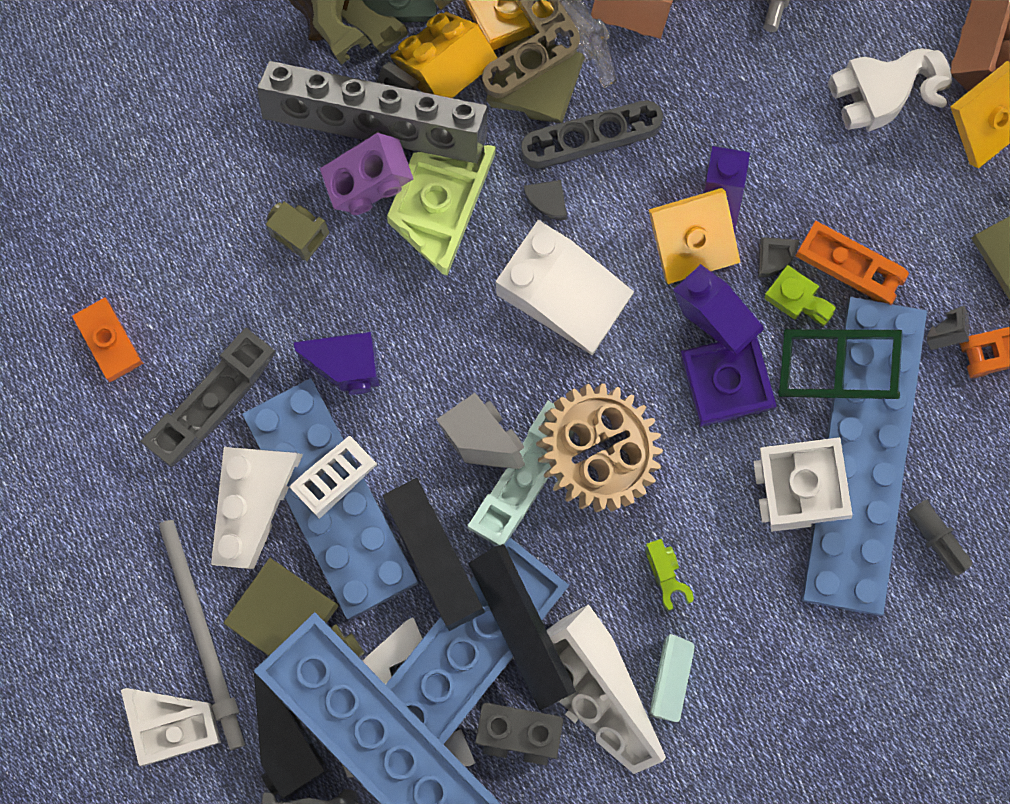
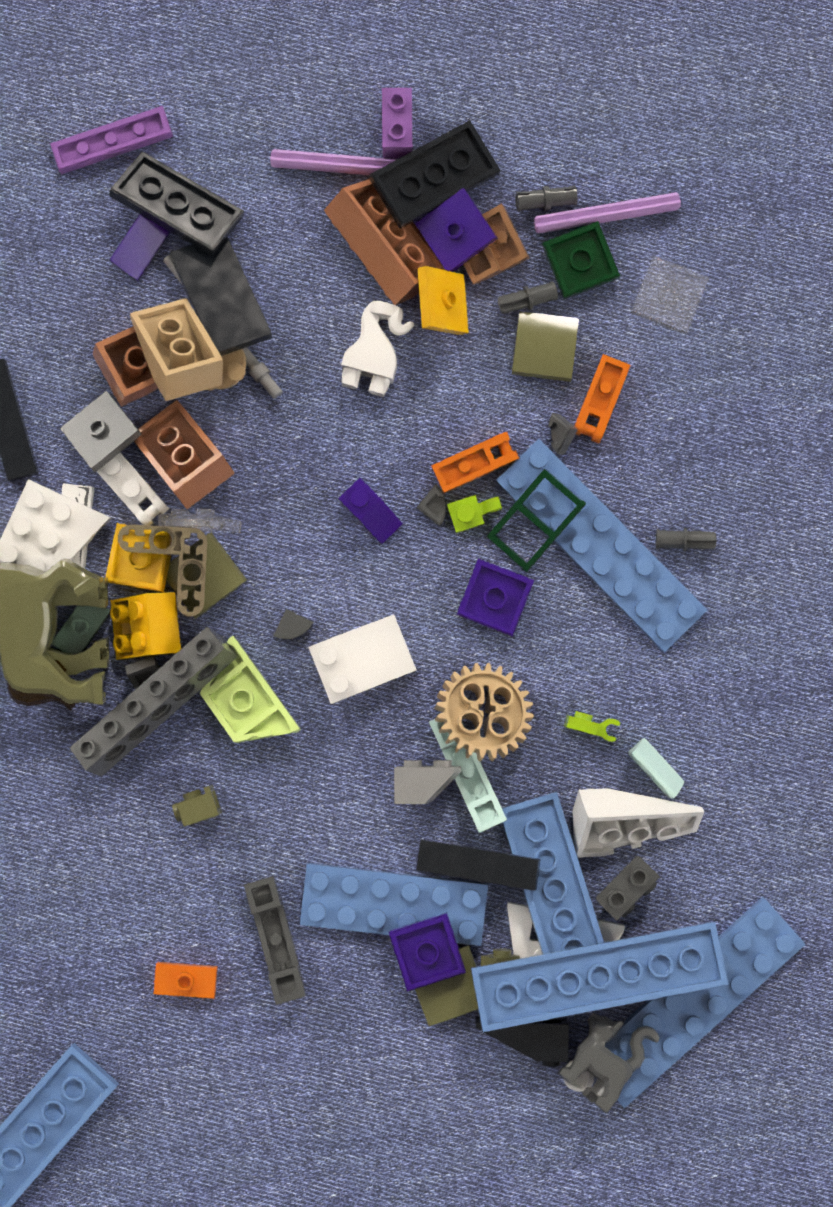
camera: 60 degrees left, 10 degrees up
(168, 725) = (470, 1102): white wing -> none
(224, 708) = (483, 1059): light grey bar -> none
(247, 500) = (360, 957): white wing -> none
(302, 562) = (427, 951): none -> dark purple plate
(312, 475) = (387, 922): white slope -> none
(343, 360) = (312, 835): dark purple slope -> none
(364, 170) = (192, 736): medium lavender brick -> none
(521, 627) = (565, 842): black tile -> none
(589, 128) = (273, 567): dark grey beam -> none
(694, 234) = (387, 551): yellow plate -> none
(717, 309) = (448, 573): dark purple slope -> none
(803, 484) = (596, 601): white plate -> none

